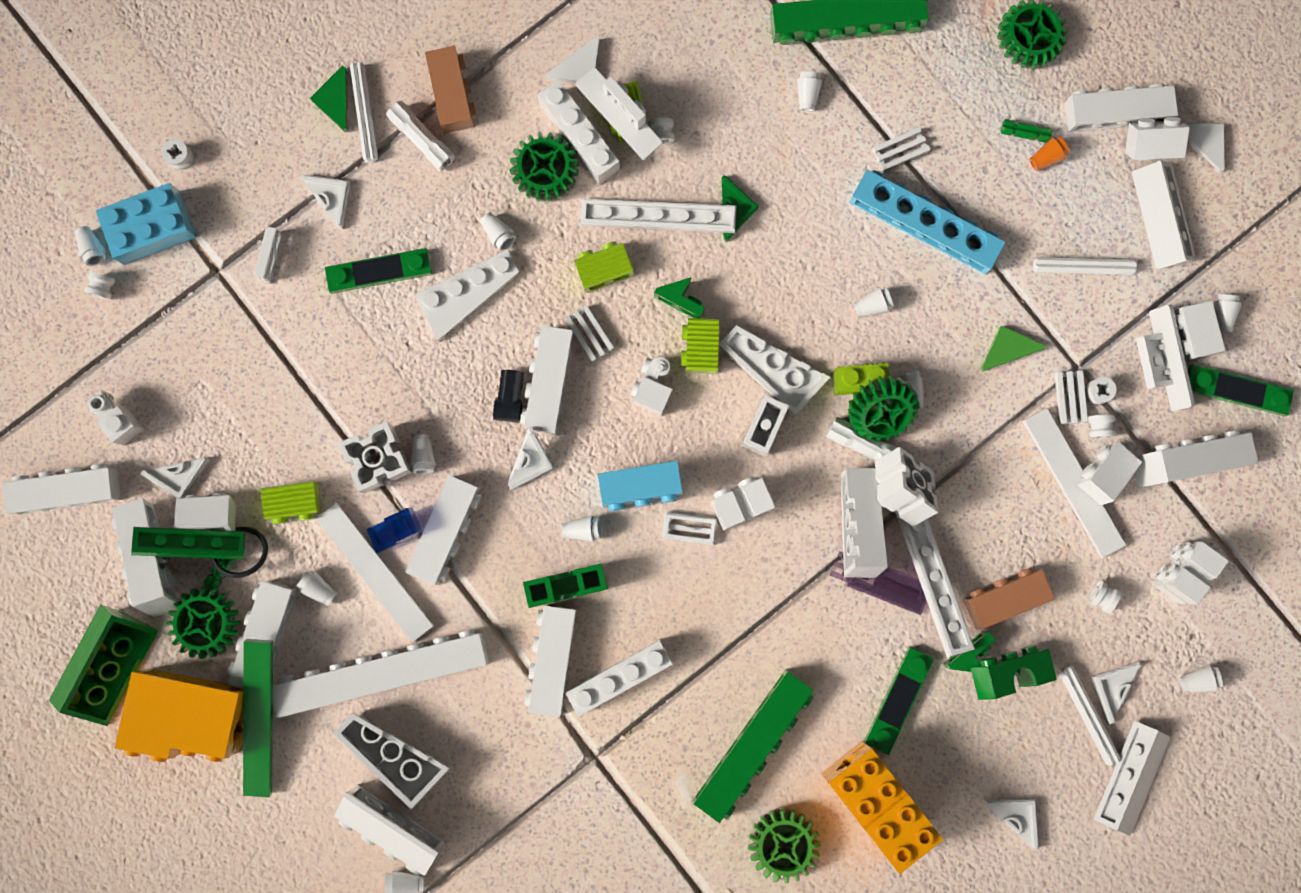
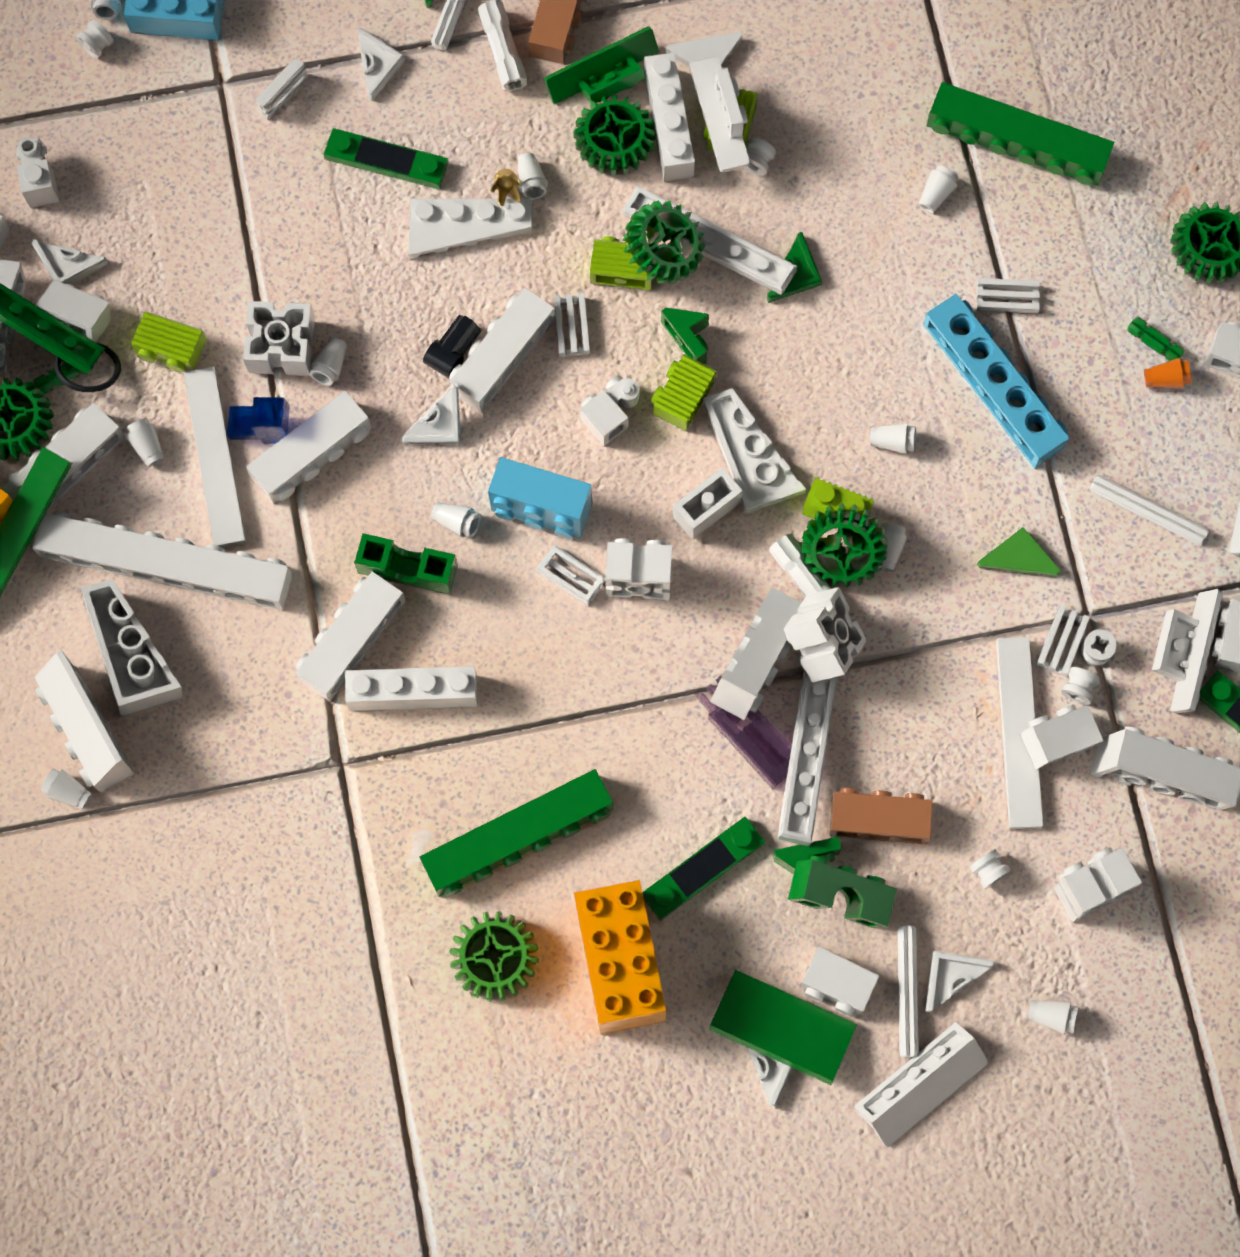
camera: 30 degrees right, 10 degrees down
(482, 246) = (506, 183): none -> pearl gold piece
(511, 118) = (605, 70): none -> green bracket
(616, 238) = (669, 260): none -> green gear
(1016, 789) = (783, 1027): none -> green tile
(1039, 735) = (839, 982): none -> white brick

